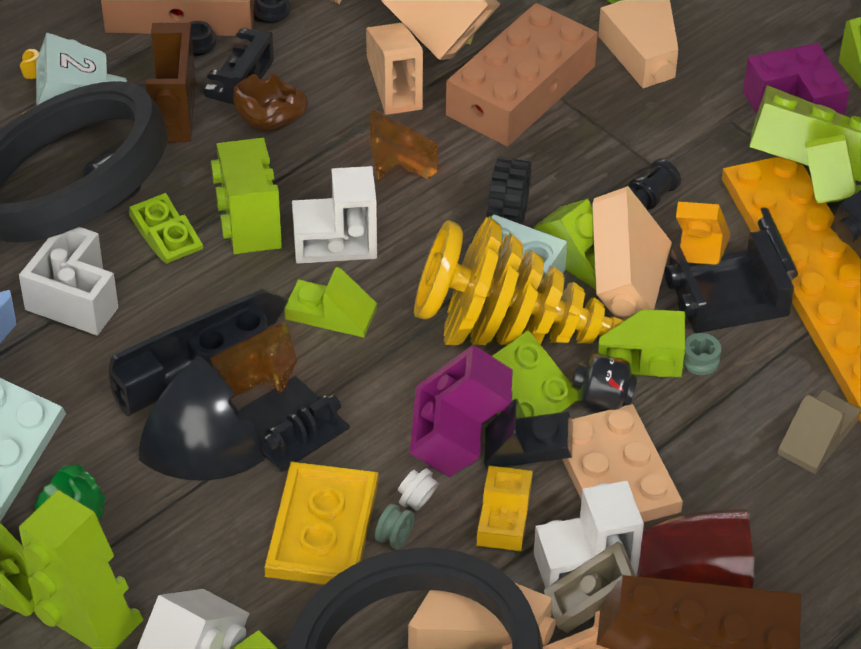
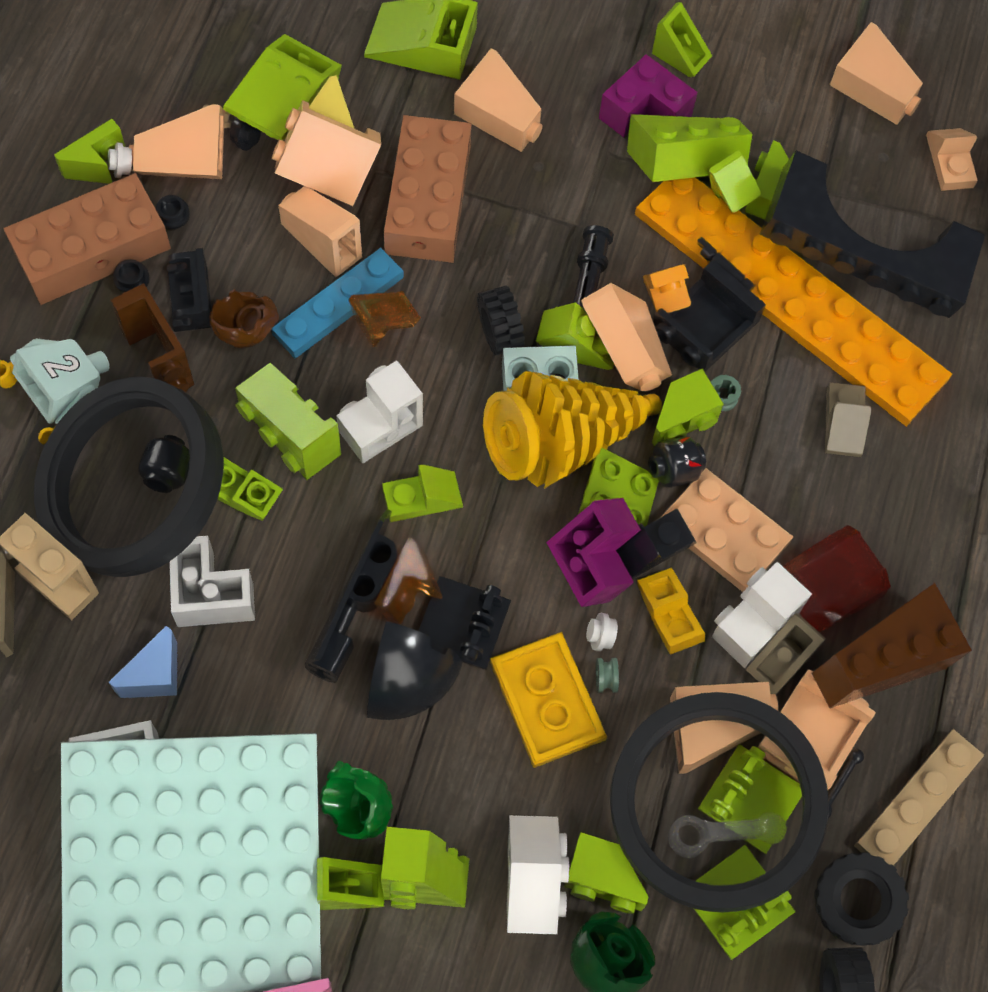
camera: 35 degrees left, 20 degrees up
(352, 131) = (331, 305): none -> dark azure plate

